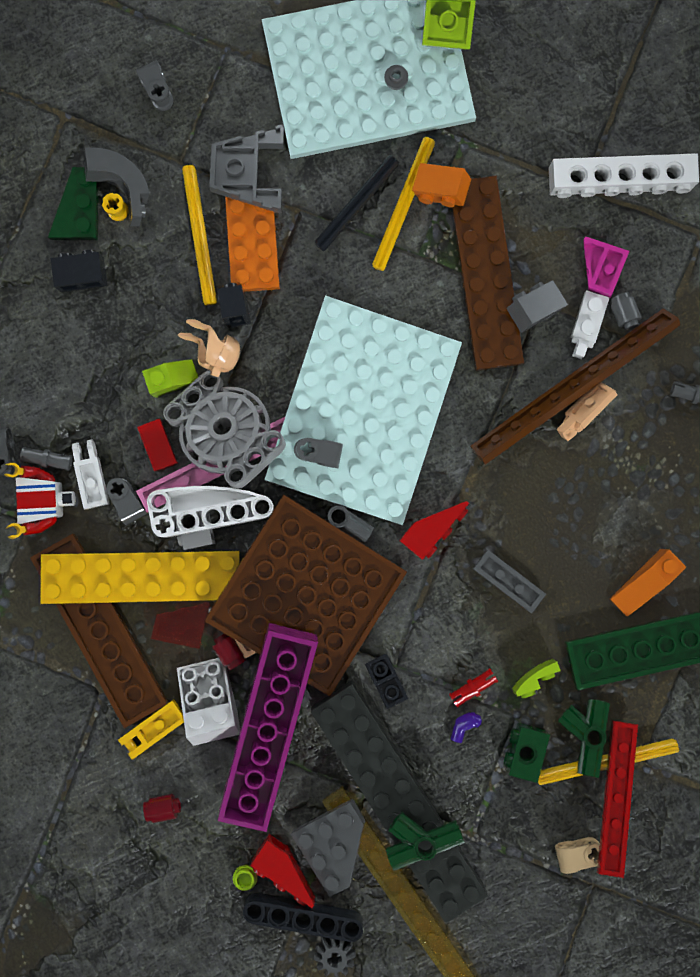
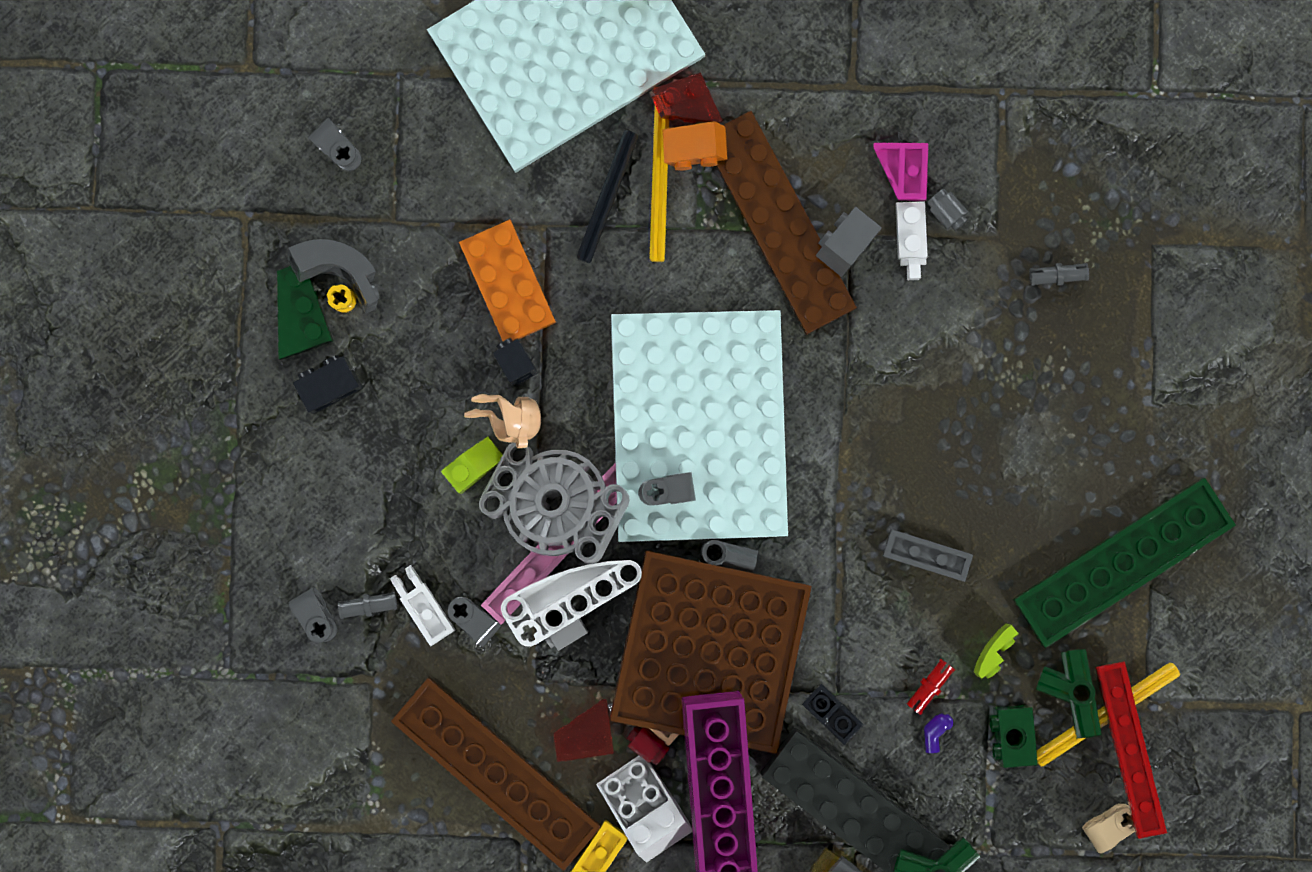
camera: 15 degrees left, 0 degrees up
(38, 500) = (376, 654): torso -> none
(135, 576) = (516, 699): yellow plate -> none
(157, 445) = (484, 545): red tile -> none
(199, 235) = (445, 295): yellow axle -> none
(236, 168) = (460, 206): dark grey wing -> none
(396, 84) = (601, 52): dark grey plate -> none
(426, 532) = (818, 532): red slope -> none
(446, 147) = (686, 100): none -> clear red wing
(575, 385) = (922, 313): reddish brown plate -> none
(585, 410) = (943, 335): light nougat hinge -> none
(648, 581) = (1079, 500): orange slope -> none
(681, 165) = (954, 27): white brick -> none

